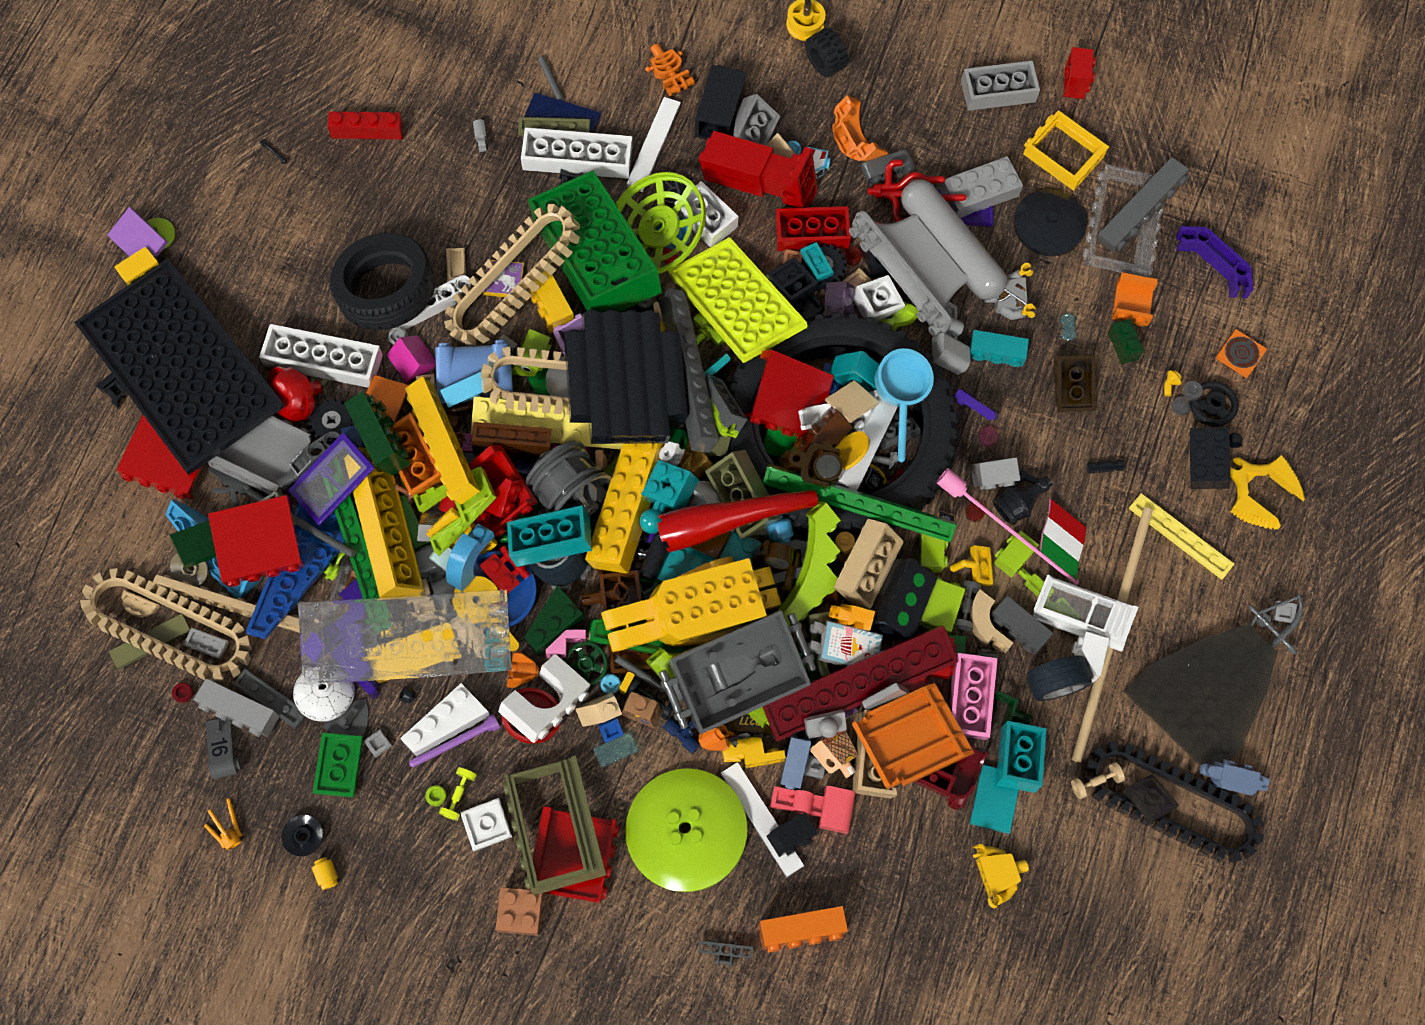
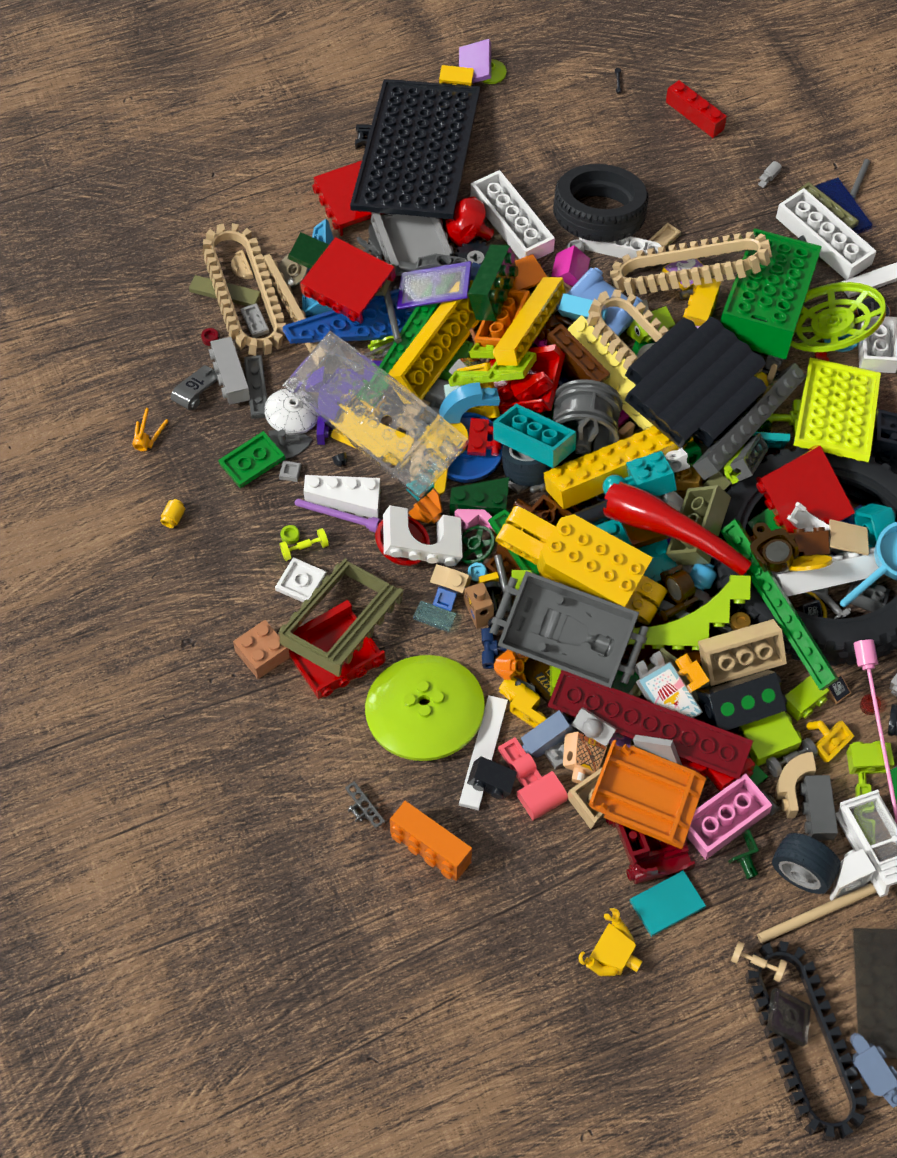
camera: 50 degrees right, 10 degrees down
(292, 835) = (184, 472): black dish -> none
(1021, 756) = (717, 888): teal brick -> none

